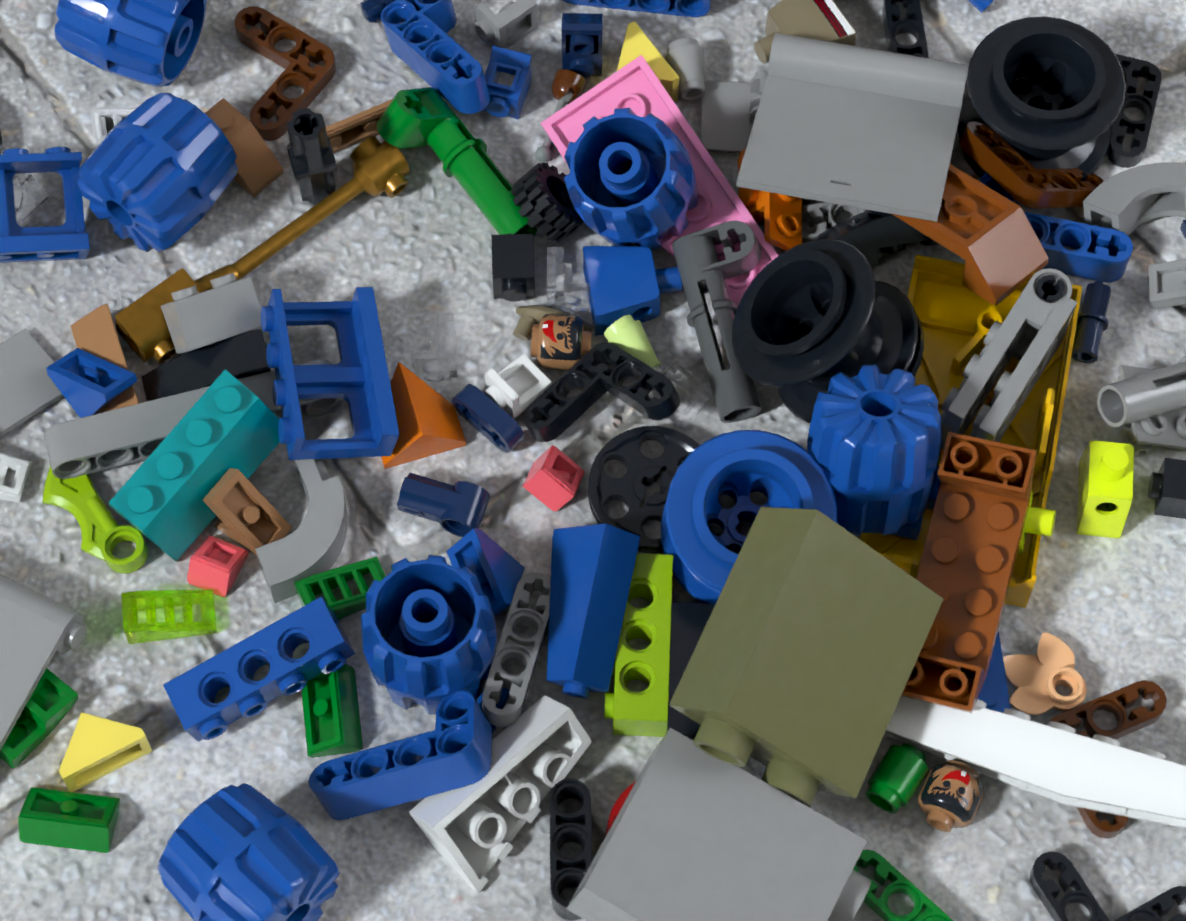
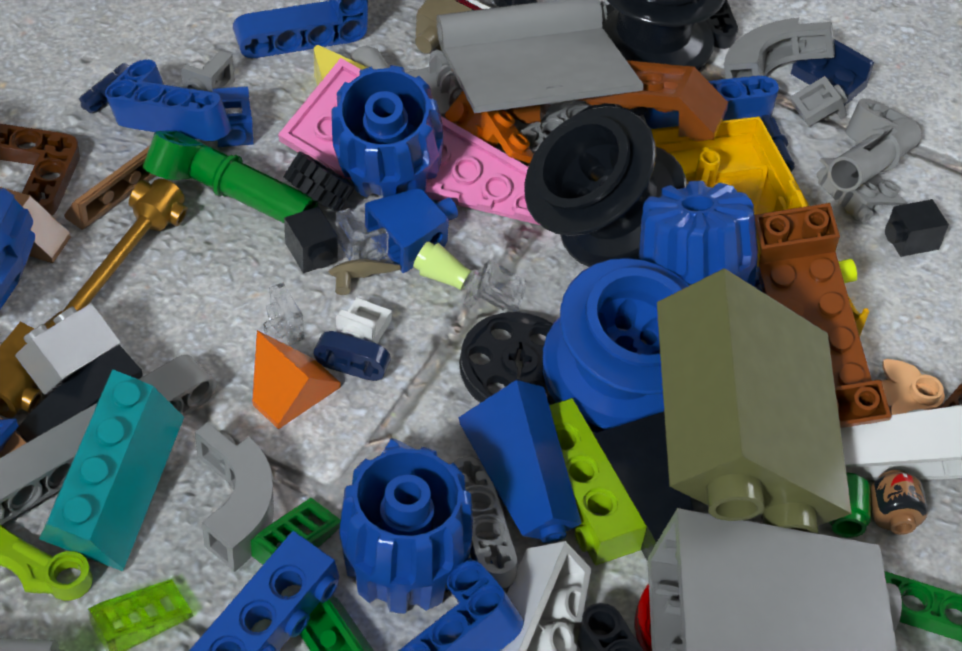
camera: 30 degrees left, 15 degrees down
(216, 565) = (164, 559): coral slope -> none
(245, 512) = (174, 500): medium nougat slope -> none
(311, 156) = (100, 200): black piece -> none
(358, 378) = (226, 354): blue window -> none
(453, 506) = (362, 431): dark blue piece -> none
(554, 478) = (432, 383): coral slope -> none
(559, 341) = (381, 280): head -> none
(566, 88) = (279, 109): reddish brown hinge -> none
(582, 43) = (282, 73): dark blue slope -> none
(597, 380) = (435, 285): black beam -> none
(703, 274) = (497, 218): dark grey piece -> none
(1019, 178) = (657, 54): reddish brown beam -> none
(1029, 334) = (753, 153): light grey hinge -> none
(1104, 478) = (867, 239): neon yellow torso -> none

